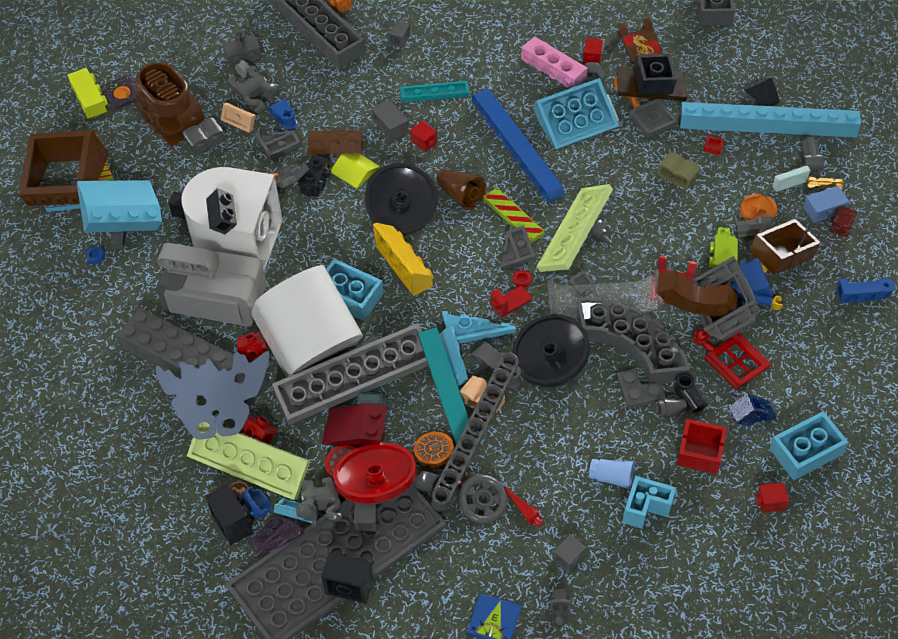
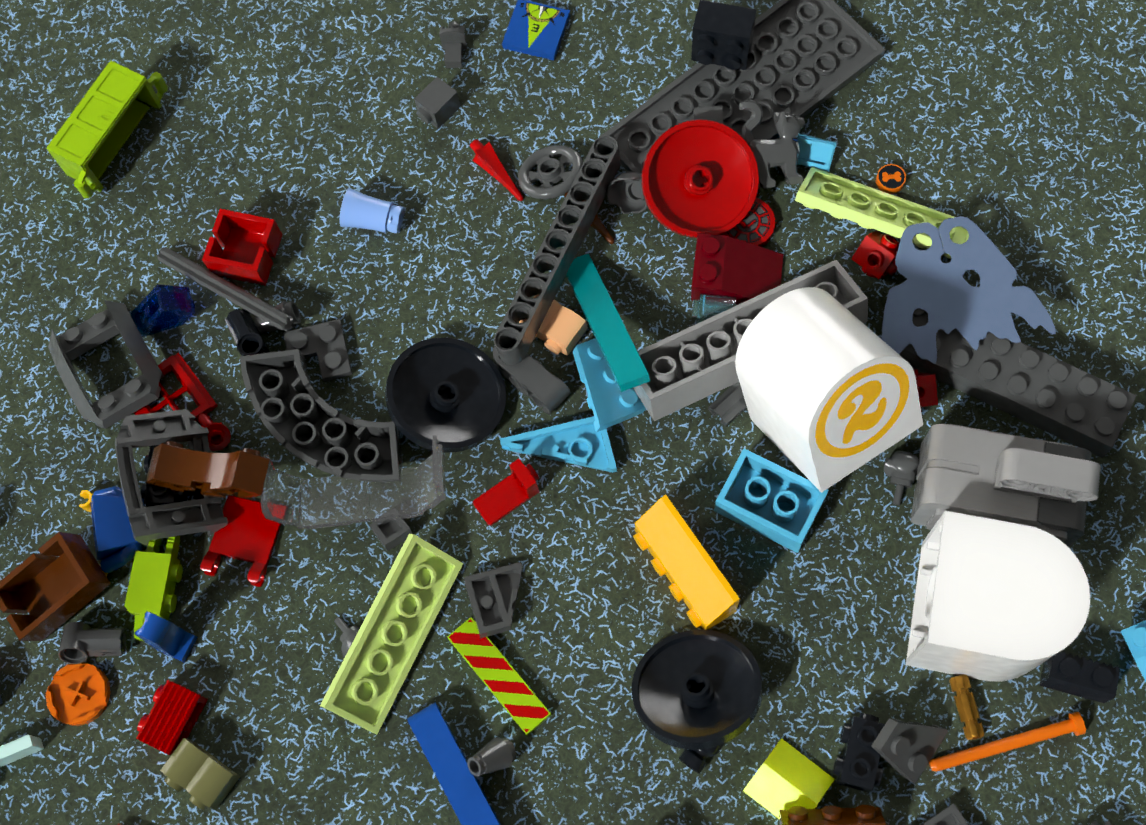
camera: 175 degrees left, 15 degrees up
(221, 211) = (1007, 533): black brick -> none
(229, 514) = (897, 126): black brick -> none
(256, 502) = (867, 147): blue hair -> none
(275, 534) = (829, 113): clear purple wing -> none
(433, 449) = (620, 243): orange tile -> none
(462, 187) = (592, 725): reddish brown cone -> none
(515, 174) = (492, 757): none -> dark grey cone
(522, 278) = (487, 543): red tile -> none
(647, 497) = (330, 172): medium azure brick -> none
(699, 194) = (171, 717): none -> red brick
(704, 416) = (225, 289): none -> dark grey axle
(711, 212) = (166, 637): none -> blue leg
(772, 497) = (162, 185): red brick -> none
(799, 400) = (87, 336): none -> dark grey wedge
(808, 445) = (95, 253): medium azure brick -> none
(822, 535) = (103, 124): none -> lime container

